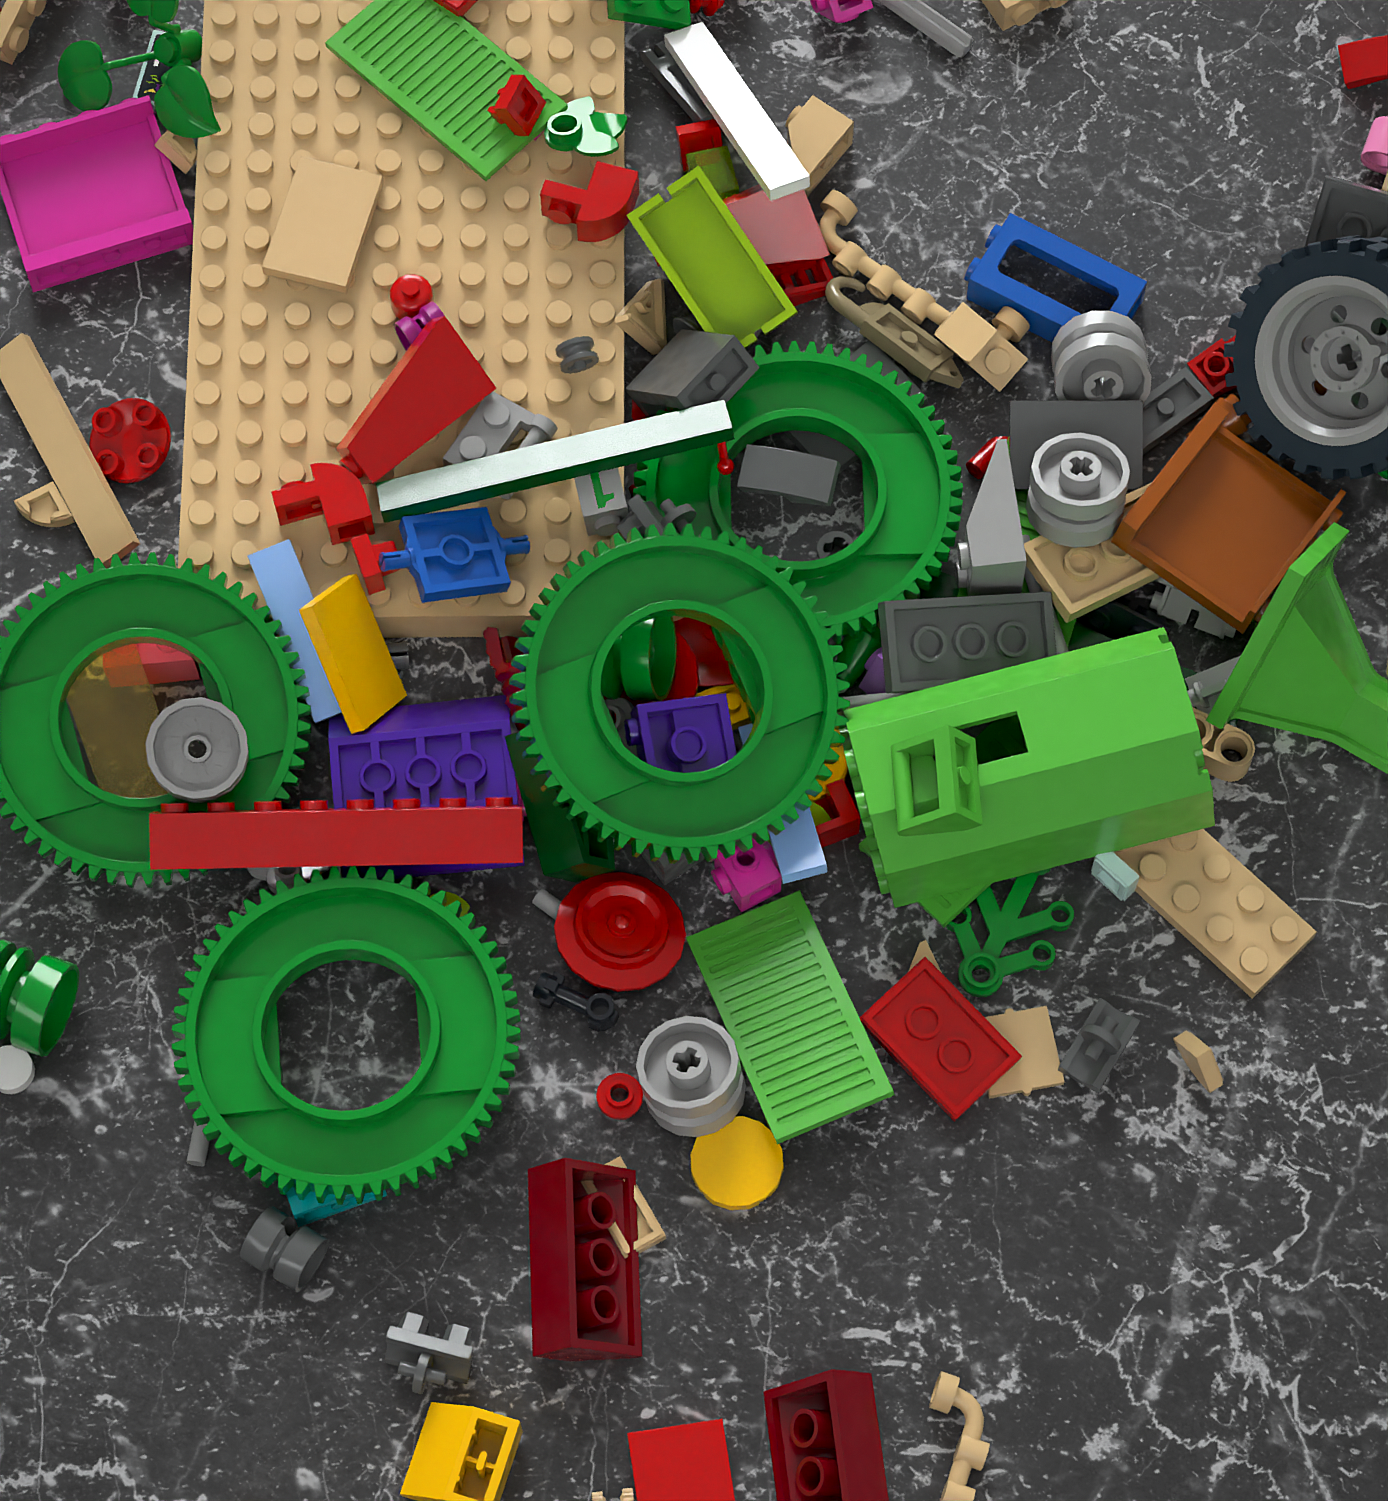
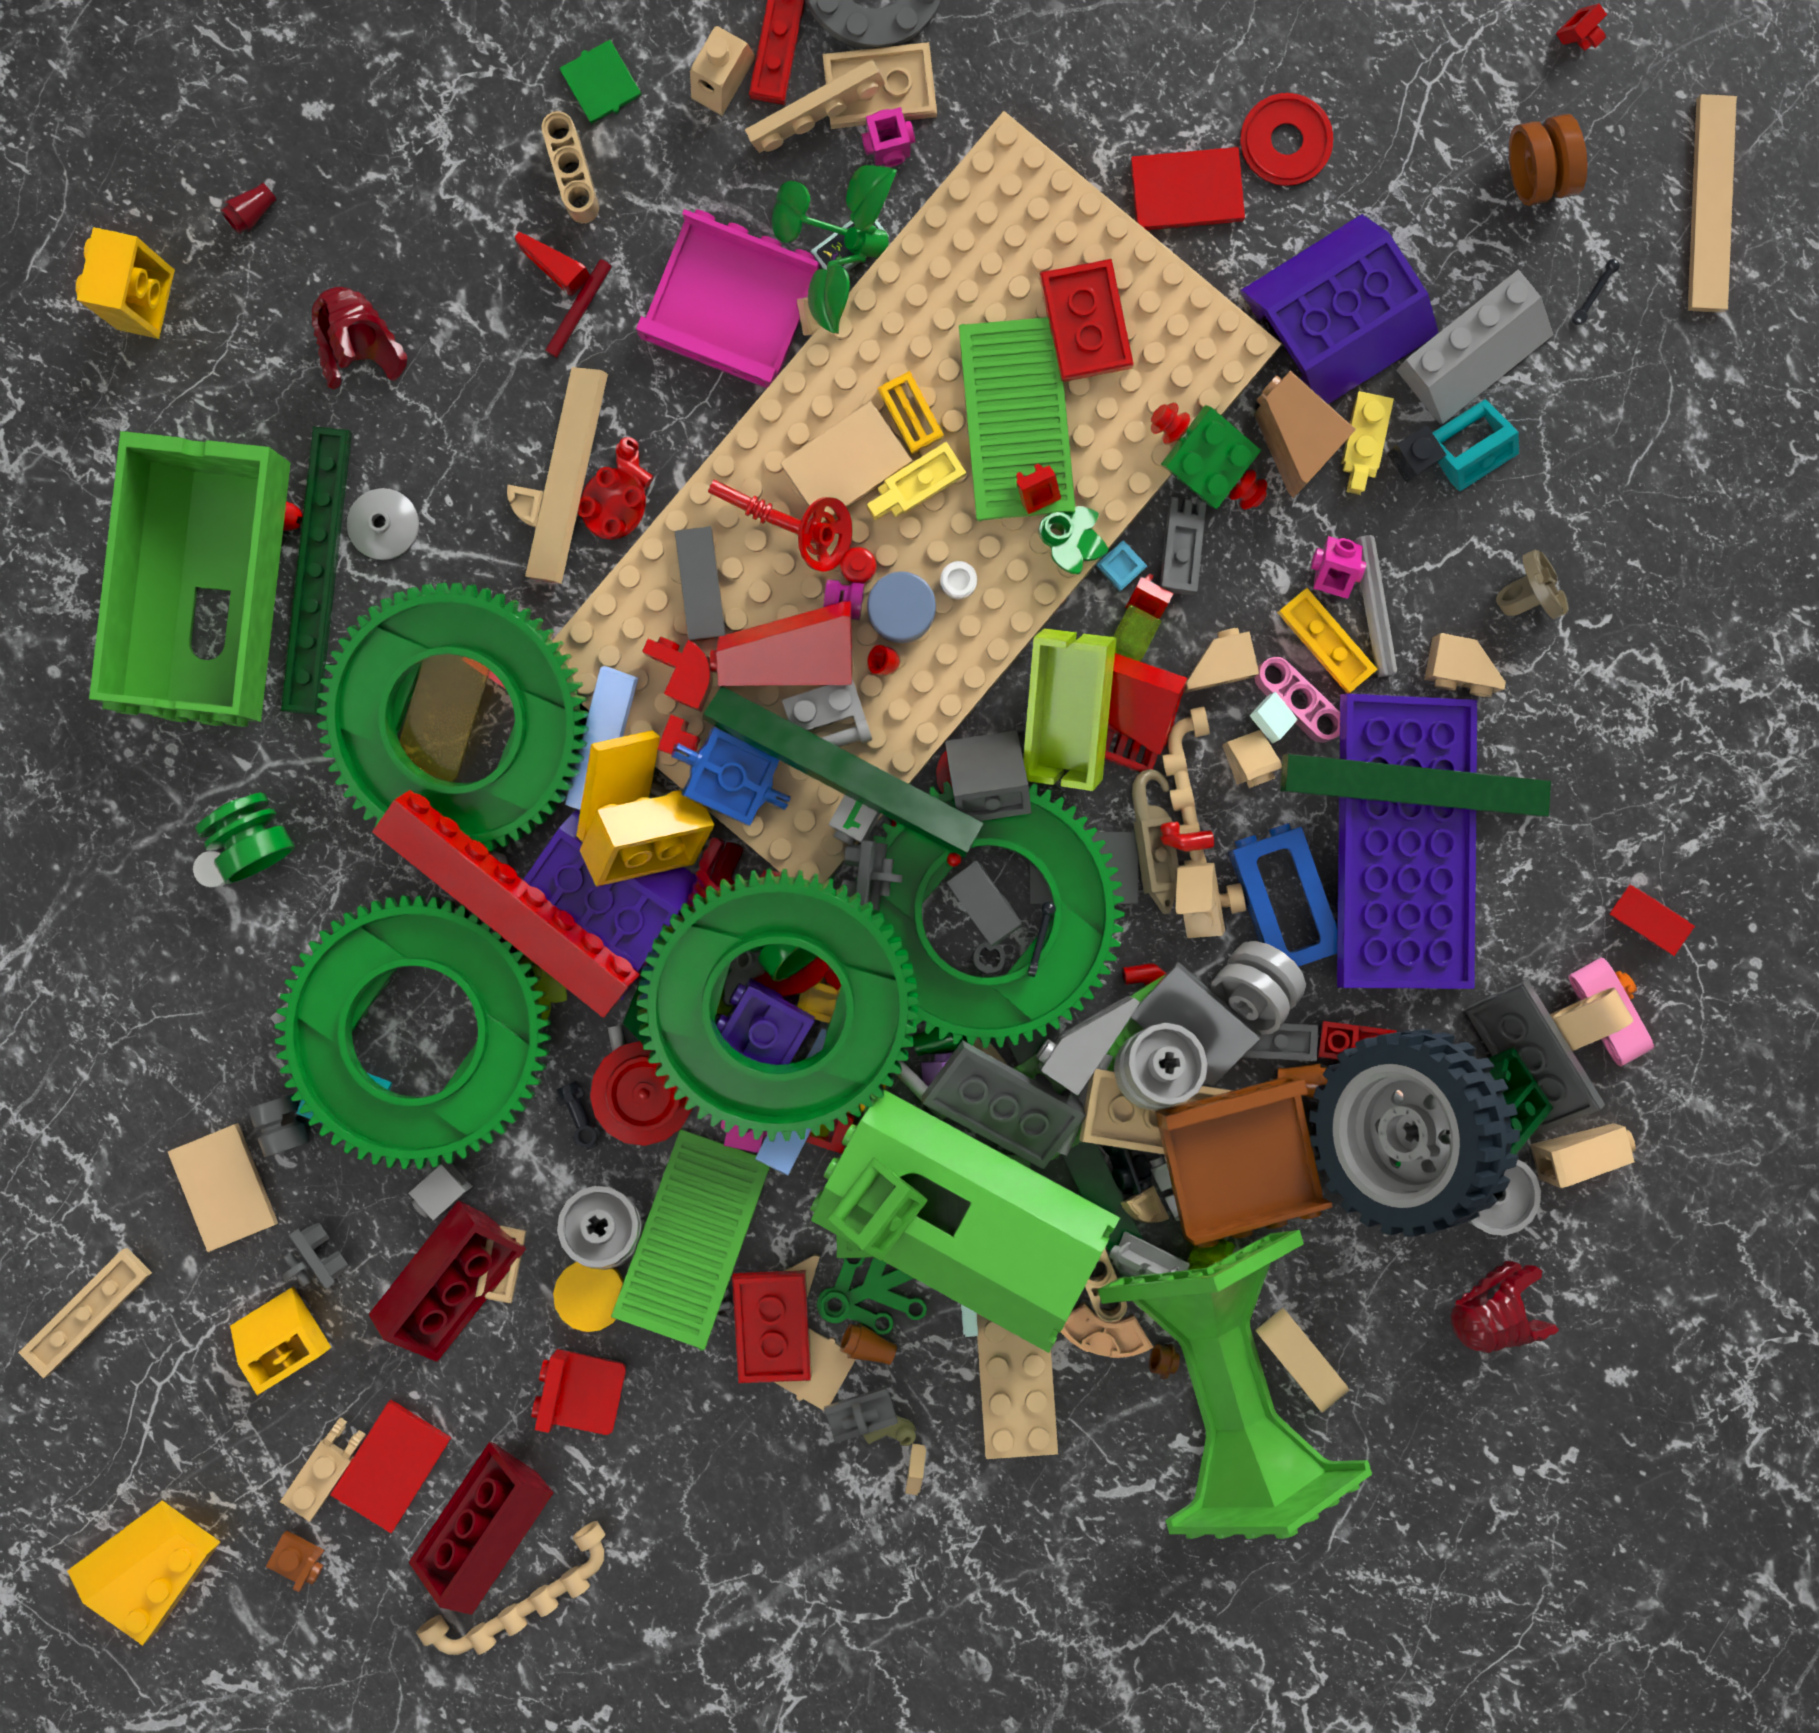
camera: 40 degrees right, 20 degrees up
(107, 392) = (628, 459): none -> red arm
(203, 777) = (459, 780): light grey wheel -> none
(276, 422) = (700, 583): none -> dark grey tile
(276, 1366) = (222, 1187): none -> tan tile
(342, 148) = (924, 440): none -> yellow tile
(347, 294) = (812, 532): none -> red dish
(403, 189) = (917, 482): none -> light yellow hinge
(420, 673) = (645, 837): none -> yellow brick
(483, 298) = (901, 607): none -> sand blue head
(501, 1181) = (439, 1191): none -> light grey brick
(502, 358) = (883, 660): none -> red hinge
(514, 241) = (958, 580): none -> white tile
(577, 354) = (927, 699): dark grey bush -> none
(599, 209) = (1031, 608): red brick -> none
(623, 1109) = (559, 1185): red plate -> none
(645, 317) = (1005, 697): tan tile -> none
(649, 141) = (1121, 566): none -> medium azure tile
(737, 111) = (1184, 606): white tile -> none
(811, 1259) = (579, 1392): none -> red bracket
(851, 441) = (1048, 910): none -> black hinge
(888, 59) = (1327, 641): none -> yellow plate
(900, 143) = (1273, 717): none -> light aqua tile
(914, 196) = (1252, 759): none -> tan slope
(919, 305) = (1185, 841): none -> red arm
(928, 112) = (1316, 705): none -> bright pink beam
(1043, 982) = (866, 1345): none -> dark orange cone
(1075, 100) = (1414, 785): none -> dark green tile
(1116, 157) = (1407, 866): none -> dark purple plate
(1146, 1039) = (902, 1431): none -> olive arm
(1189, 645) = (1146, 1207): none -> tan tile
(1259, 793) = (1105, 1338): none -> light nougat tile
(1331, 767) = (1164, 1360): none -> reddish brown plate

